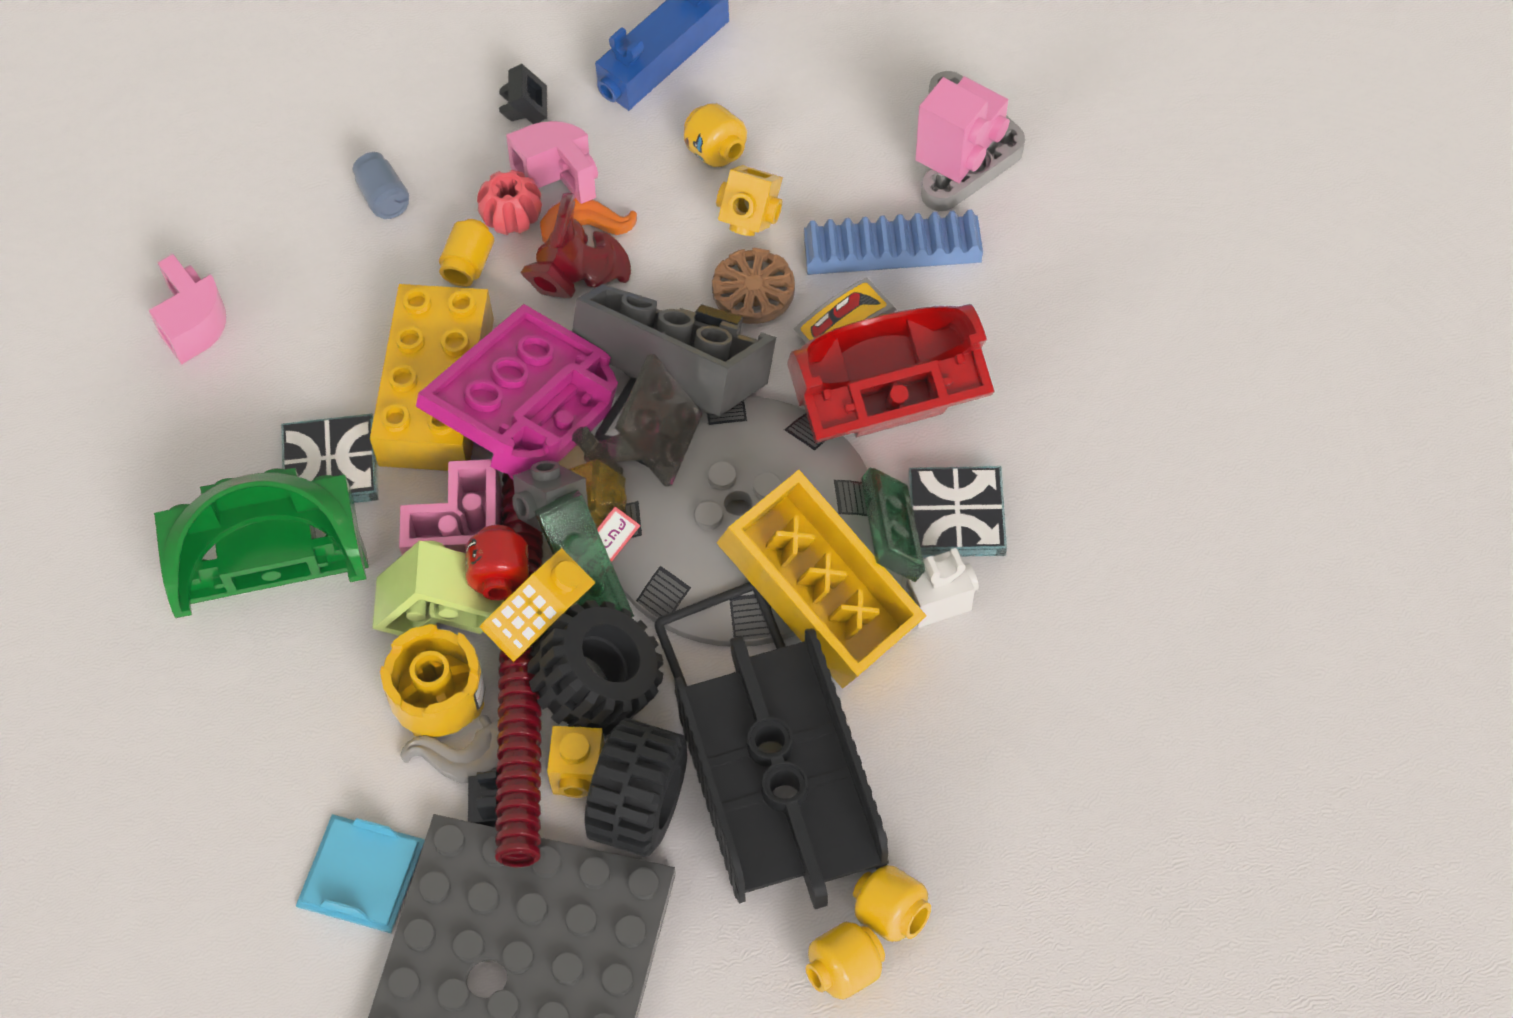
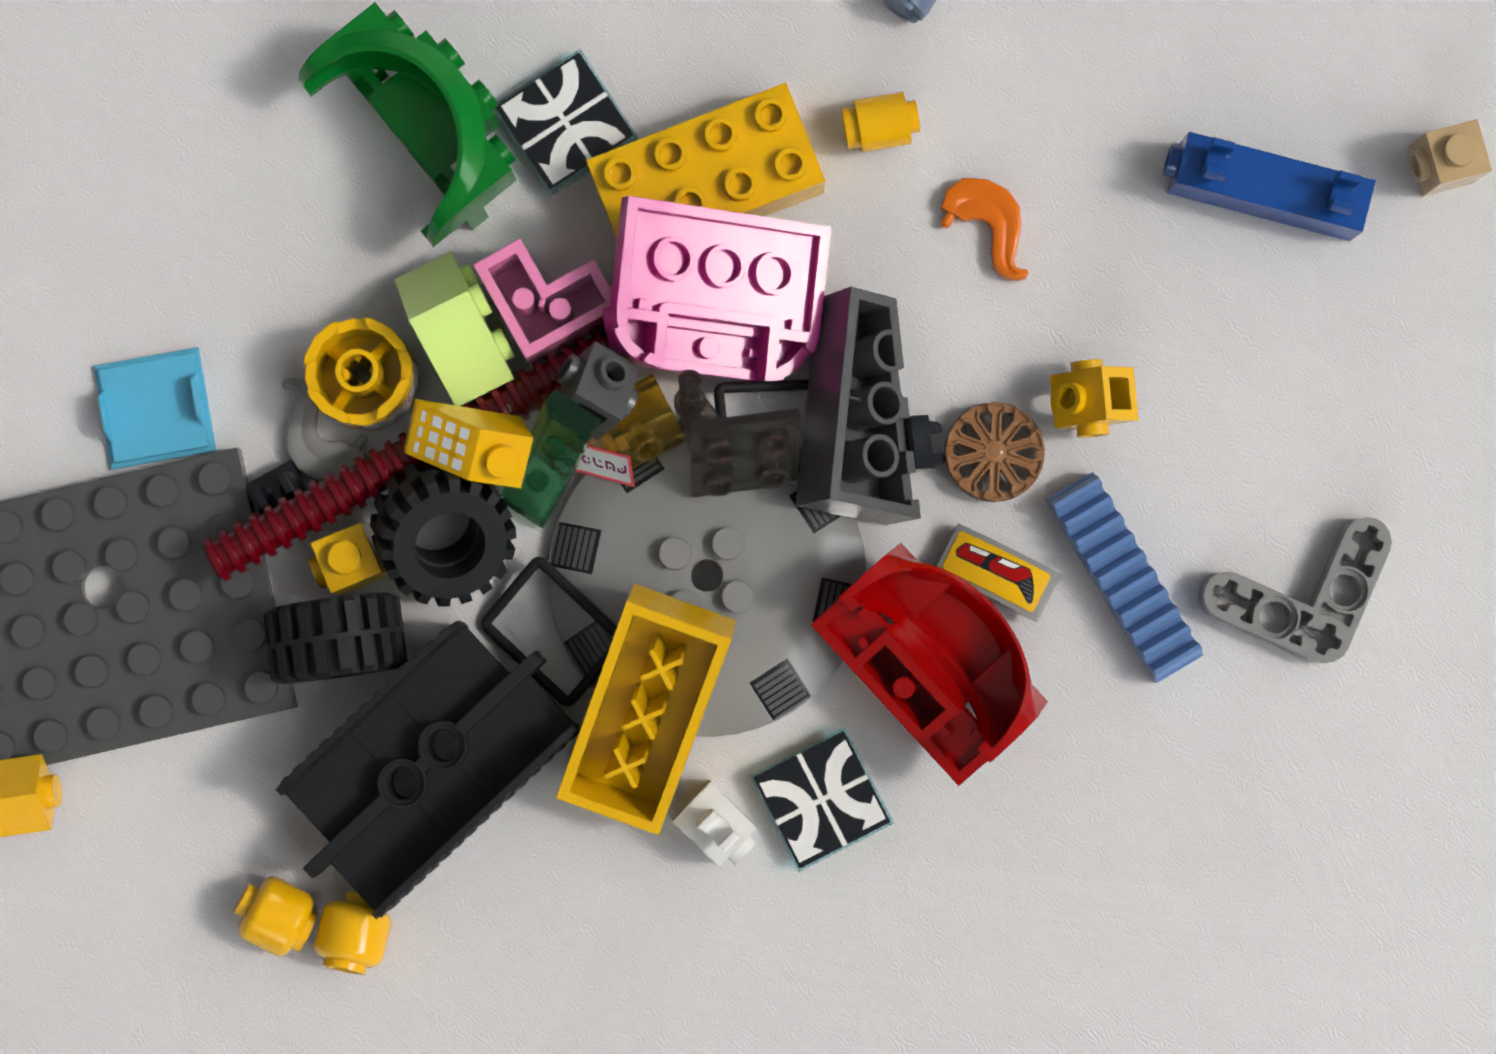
camera: 60 degrees right, 25 degrees up
(497, 561) = (494, 377): red head -> none
(509, 202) = (980, 134): coral piece -> none
(525, 96) = (1118, 72): black tile -> none
(554, 153) = (1053, 144): bright pink brick -> none
(568, 259) = (924, 243): dark red animal -> none
(715, 135) = (1168, 312): yellow head -> none
(892, 524) = (752, 749): clear green tile -> none
(959, 126) = (1298, 588): bright pink brick -> none

